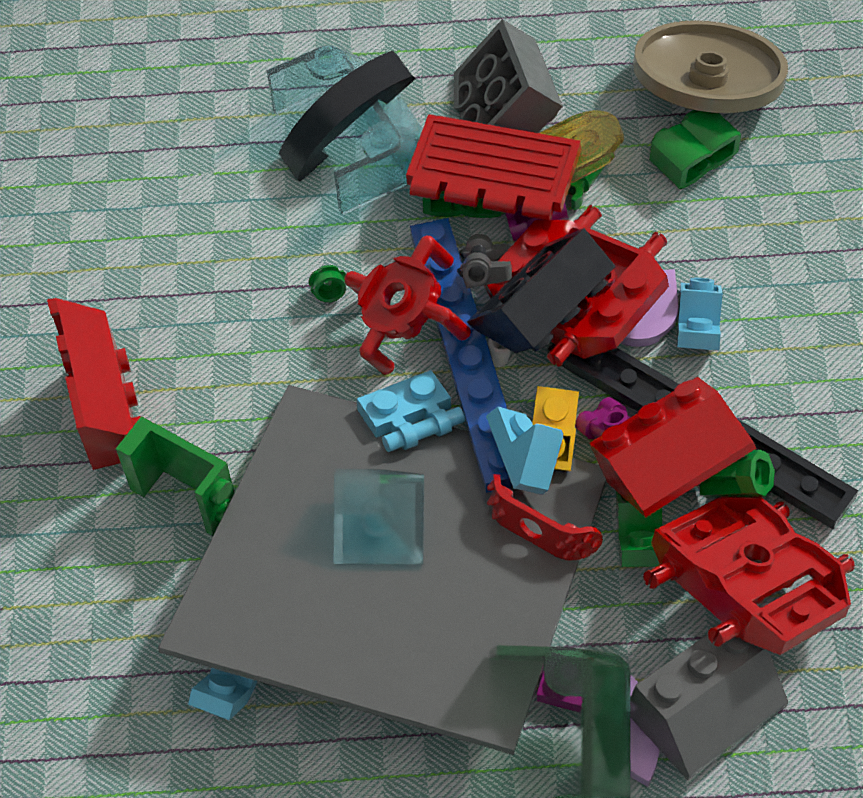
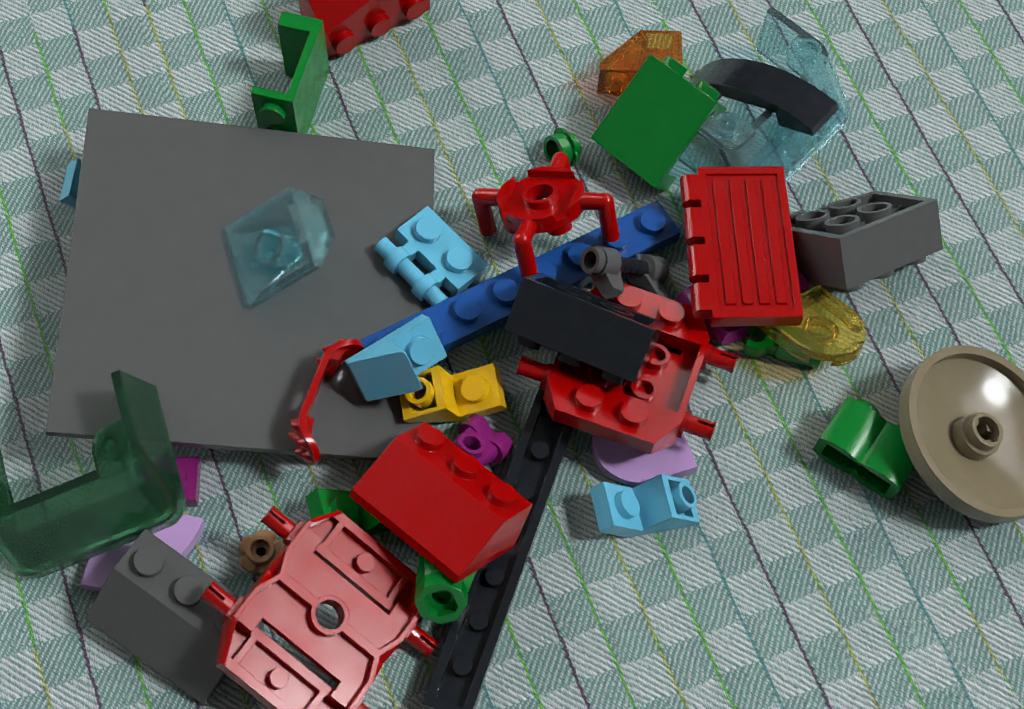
camera: 65 degrees right, 5 degrees up
(267, 191) = (623, 64): none -> clear orange slope
(346, 190) = (657, 119): none -> green panel
(658, 633) = (251, 544): none -> medium nougat plate

